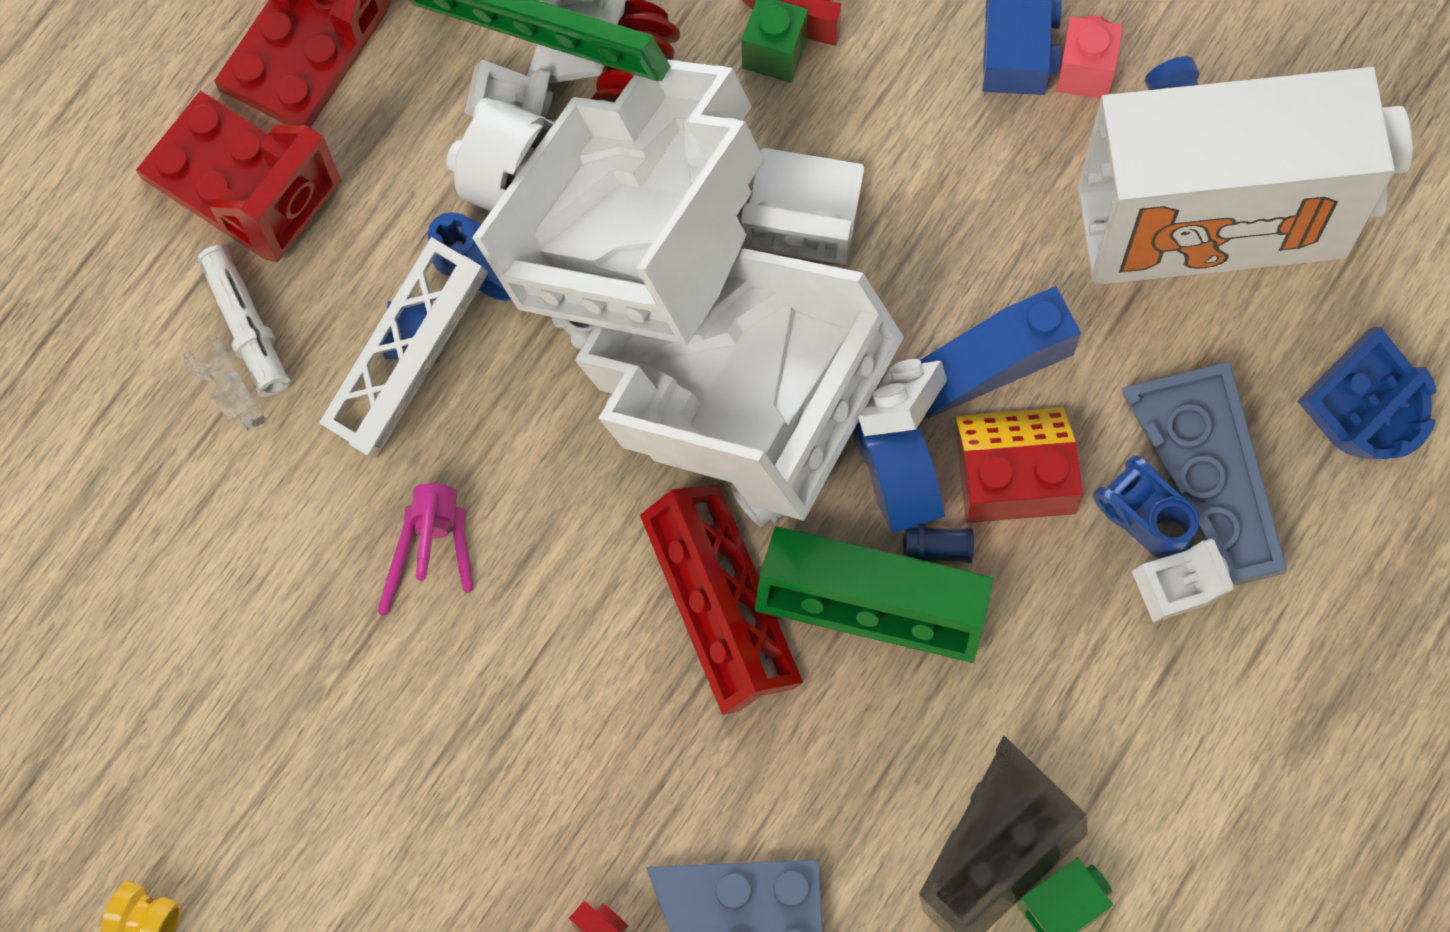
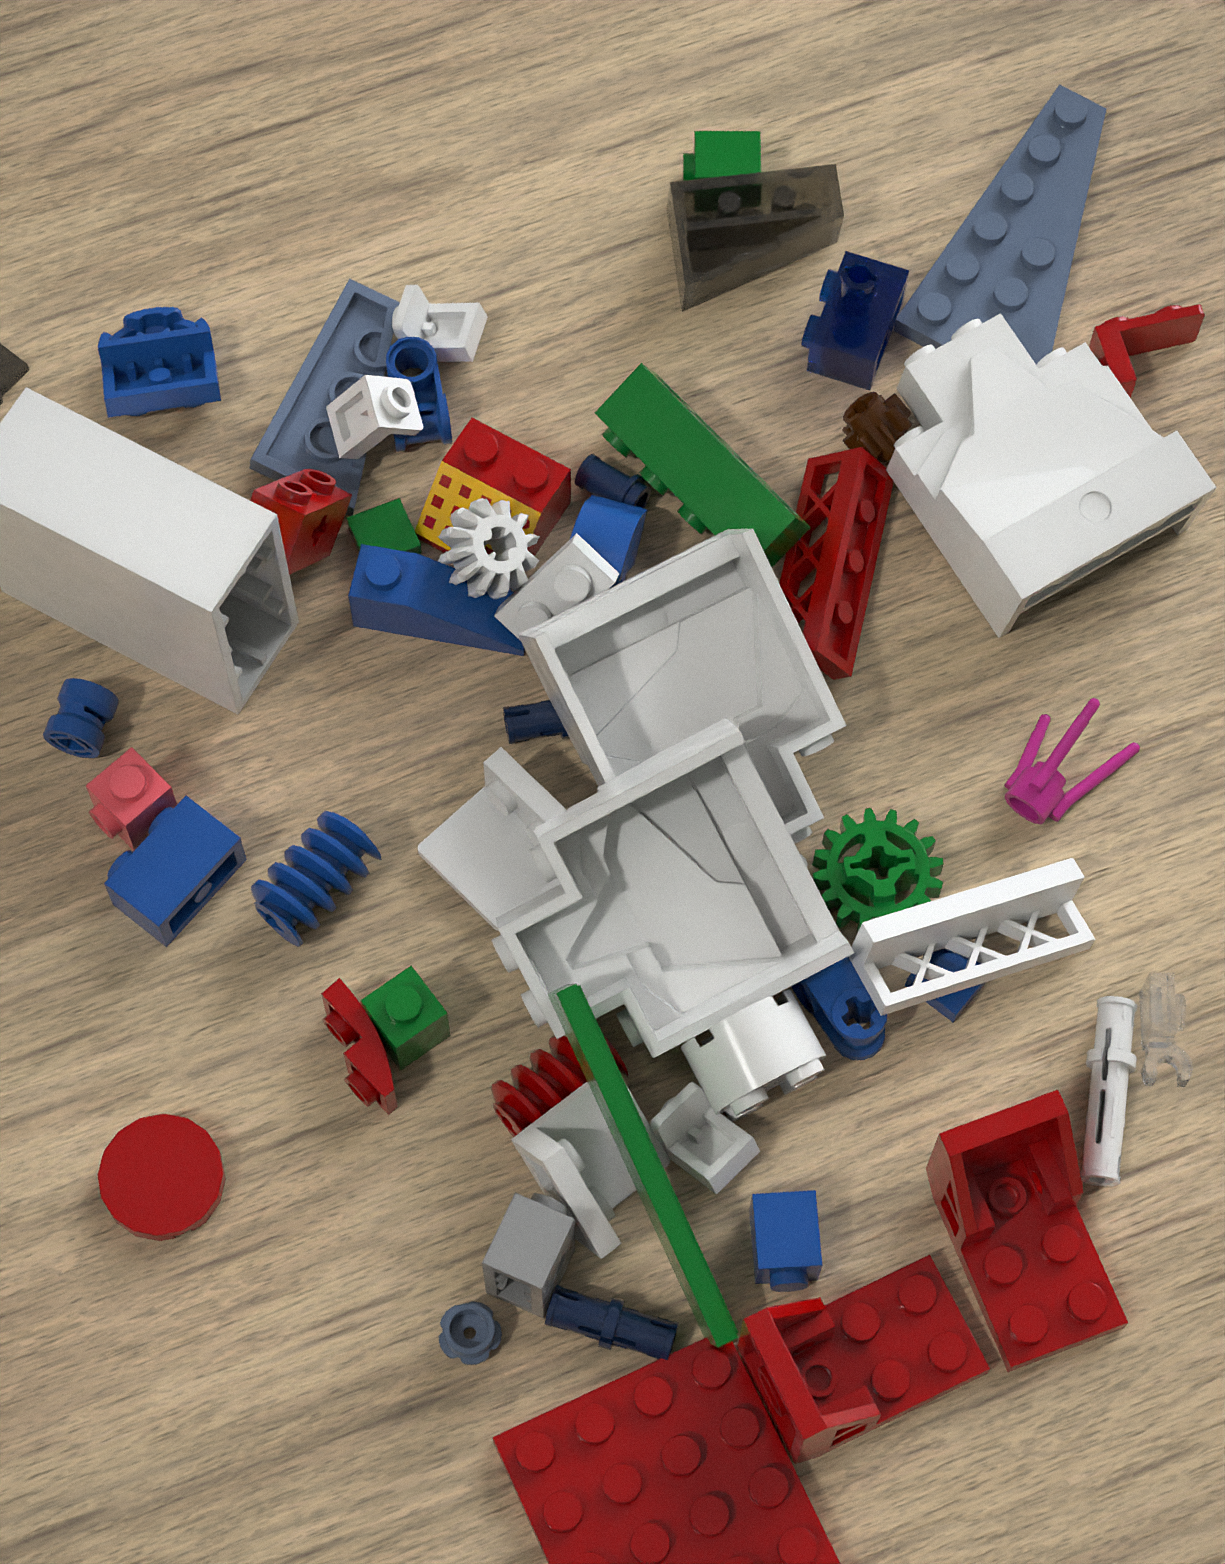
camera: 150 degrees left, 5 degrees down
(407, 69) = (785, 1239): none -> blue brick
(519, 341) = (880, 850): none -> green gear
(599, 768) = (1033, 467): none -> white panel
(761, 735) = (876, 424): none -> reddish brown gear
(850, 831) = (856, 319): none -> clear blue brick
(916, 86) = (312, 874): none -> blue piece
(962, 379) = (479, 527): none -> white gear
(1083, 387) = (384, 527): none -> green tile
(1147, 315) = (307, 513): none -> red brick
(1158, 451) = (372, 412): none -> white bracket

